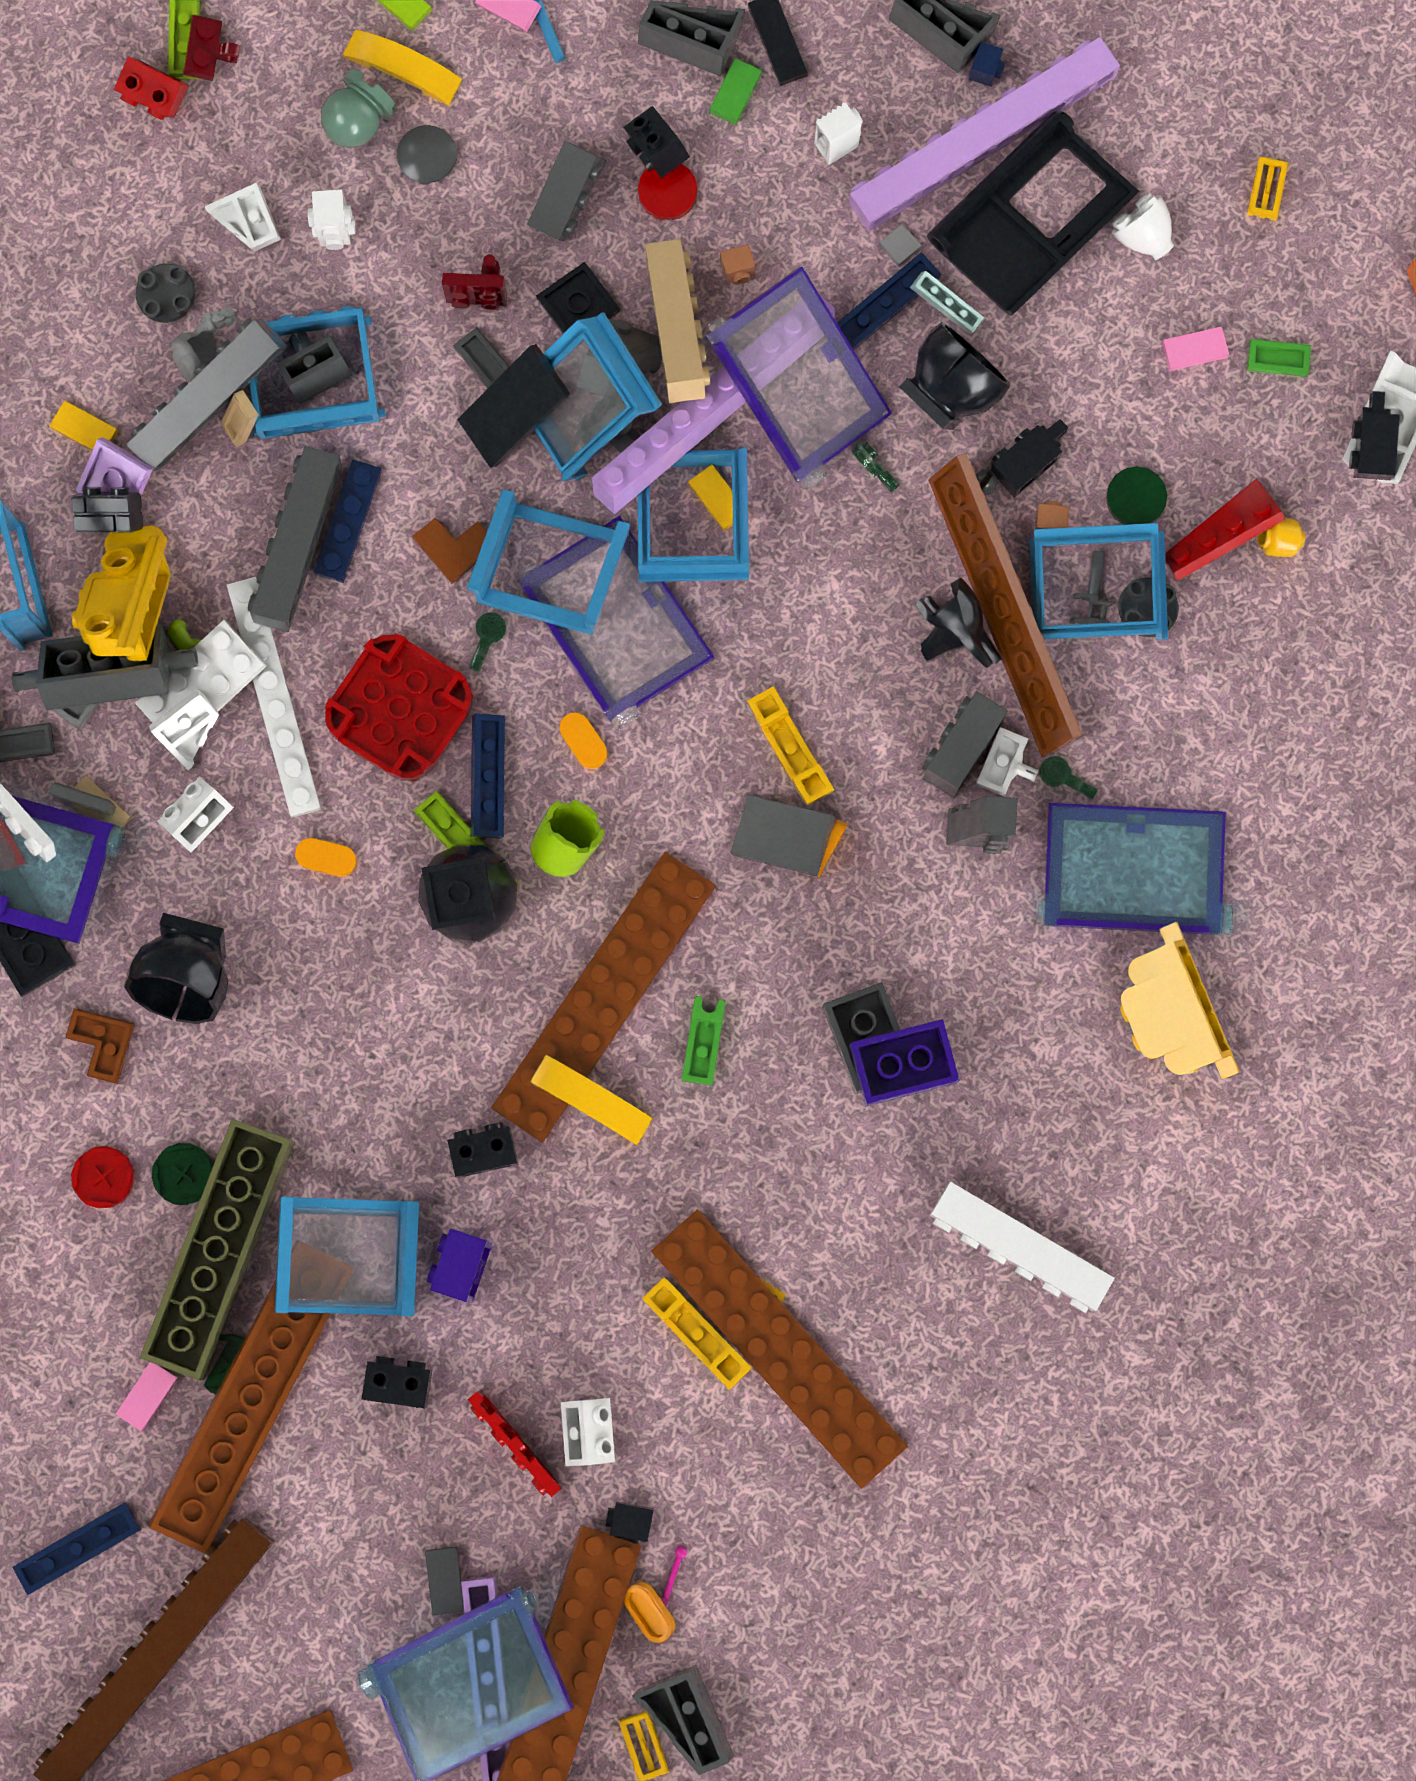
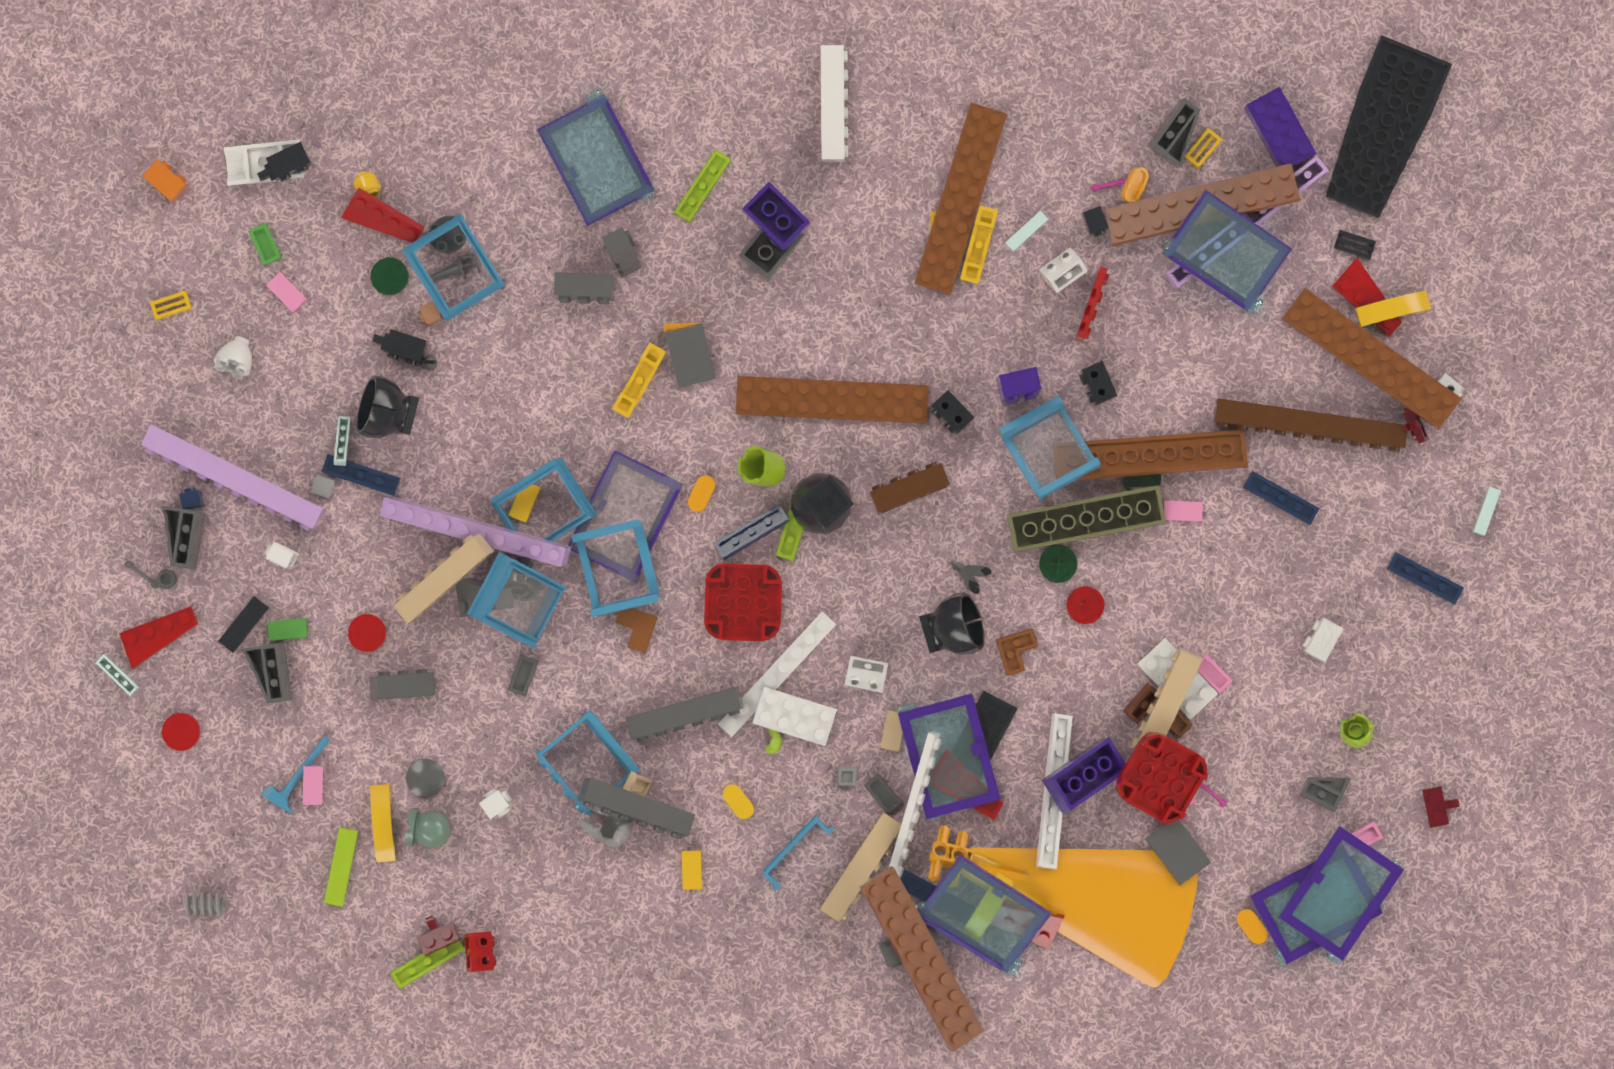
camera: 120 degrees left, 5 degrees up
(76, 677) = (817, 770): dark grey brick -> none
(82, 799) = (894, 739): dark grey tile -> none
(107, 511) = (731, 824): black brick -> none
(114, 467) = (710, 833): lavender tile -> none
(124, 601) = (776, 782): yellow brick -> none
(165, 292) = (589, 872): dark grey dish -> none
(186, 727) = (822, 707): white wing -> none
(247, 217) = (520, 854): white wing -> none
(248, 1040) = (967, 573): none -> dark grey piece
(313, 367) = (584, 763): dark grey brick -> none
(326, 857) = (846, 592): light orange tile -> none
(348, 521) = (657, 693): dark blue plate -> none
(412, 1024) = (910, 488): none -> reddish brown brick
(444, 1581) = (1182, 299): dark grey tile -> none
(477, 289) = (485, 692): dark red plate -> none
(490, 629) = (670, 579): clear green plate -> none
(513, 406) = (543, 638): black tile -> none
(576, 298) = (460, 643): black tile -> none
(591, 1099) = (891, 372): yellow slope -> none
(656, 142) = (346, 651): black brick -> none
(676, 1414) = (1026, 231): none -> light aqua piece
(703, 1043) = (825, 332): bright green plate -> none
(737, 264) = (388, 567): nougat plate -> none
(798, 375) = (434, 493): clear door -> none
(866, 456) = (454, 434): clear green plate -> none
(957, 626) = (521, 329): black piece -> none
(999, 245) = (291, 429): black piece -> none
(1004, 606) = (494, 310): dark orange plate -> none
(1005, 763) = (579, 261): white plate -> none
(1011, 995) = (702, 186): none -> lime tile
(1056, 772) = (568, 231): clear green plate -> none
(1173, 1010) = (661, 95): yellow brick -> none

